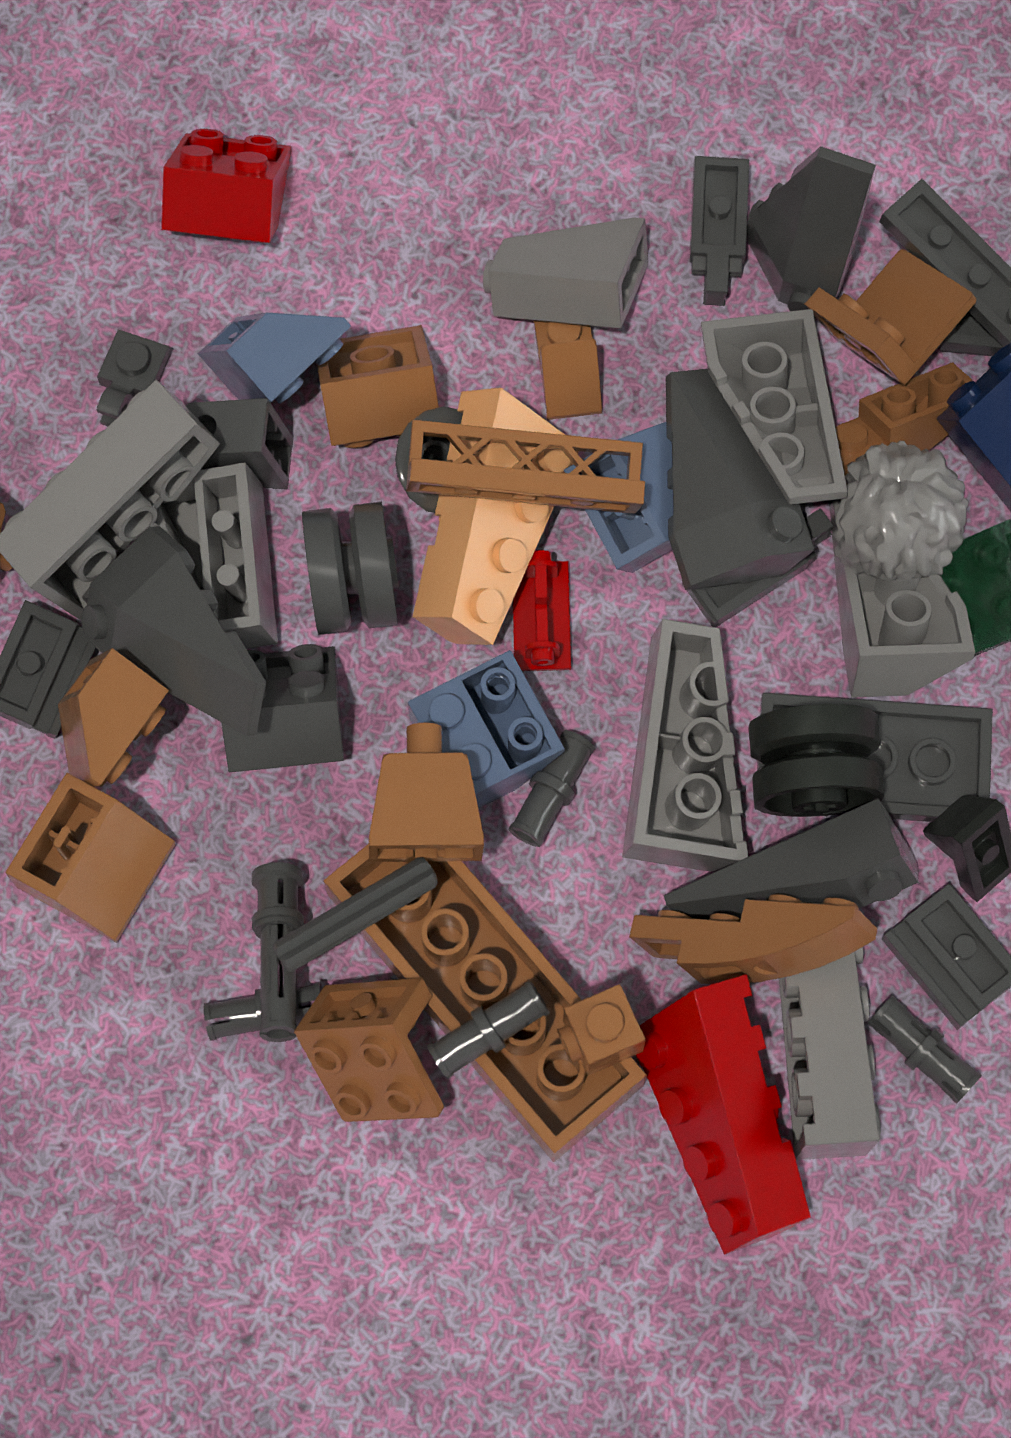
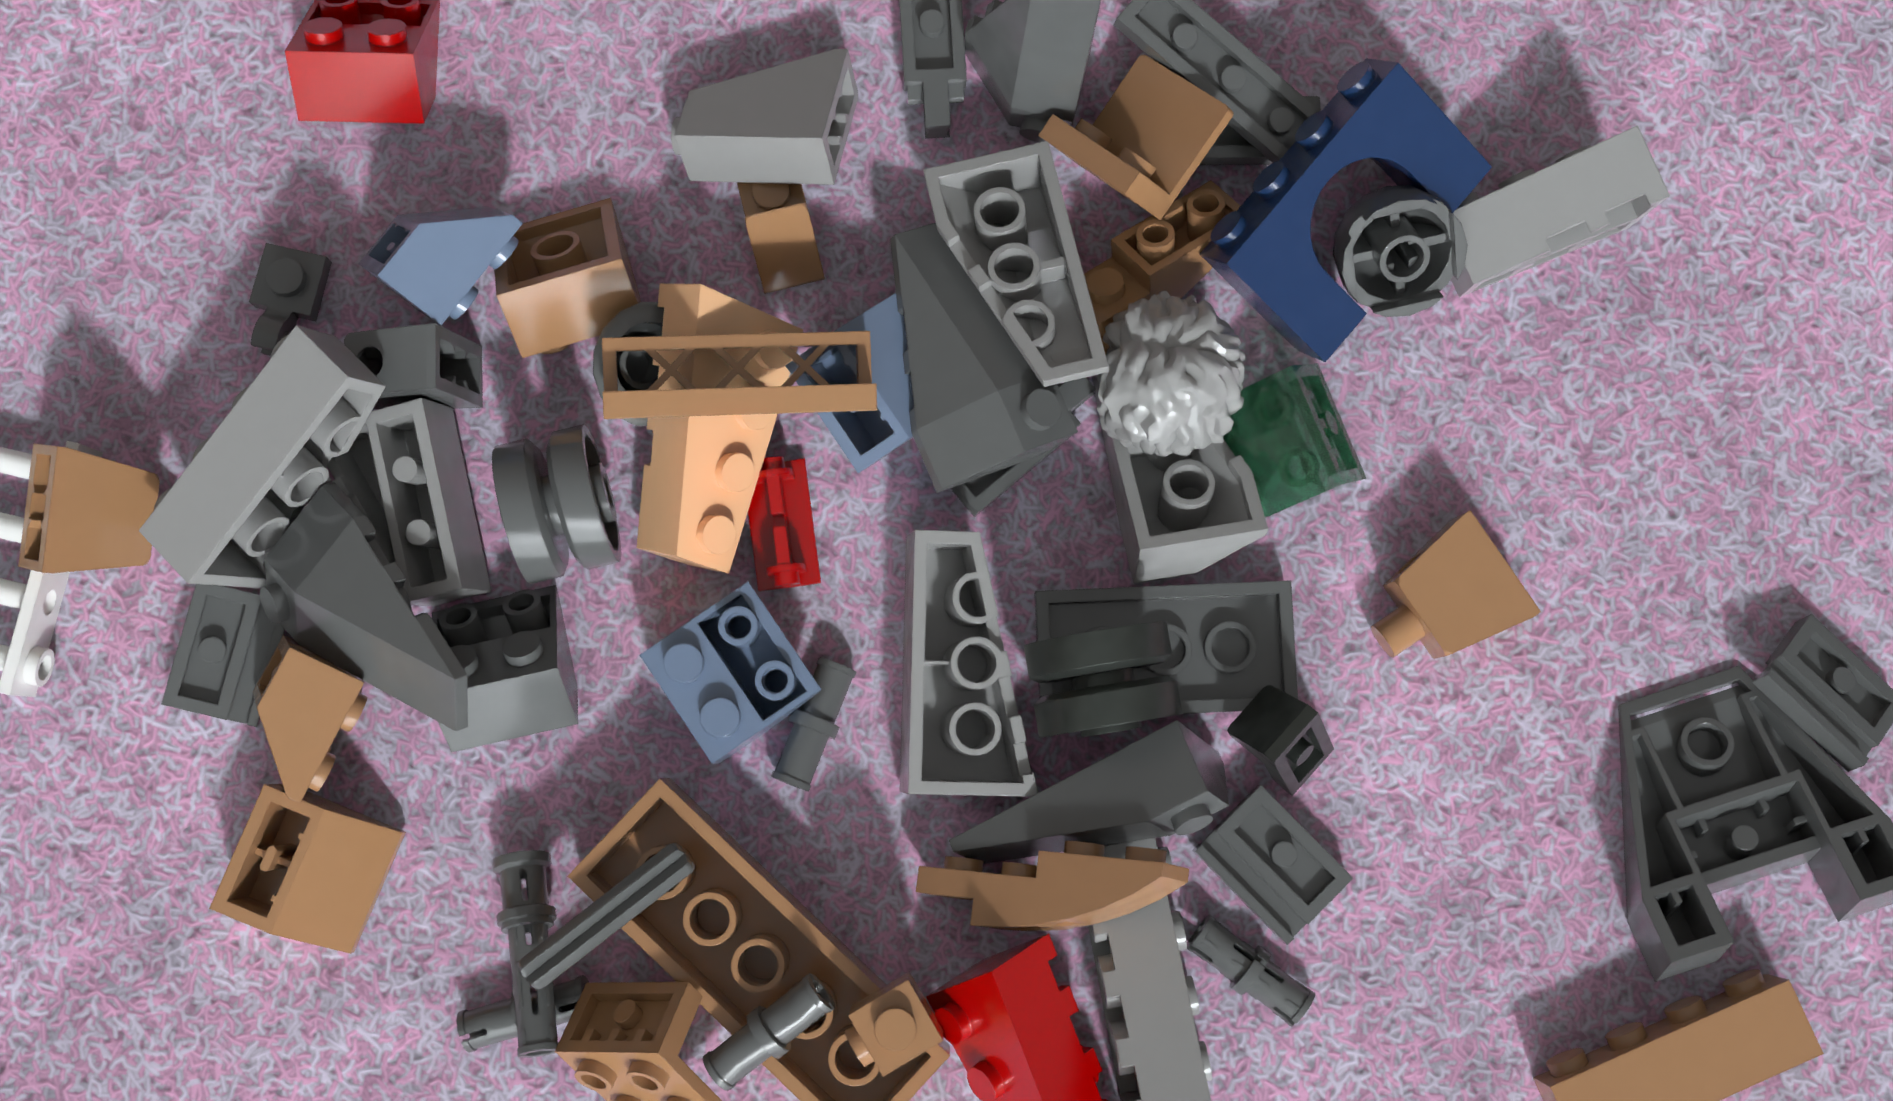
camera: 10 degrees left, 10 degrees up
(425, 803) = (667, 781): medium nougat torso -> none

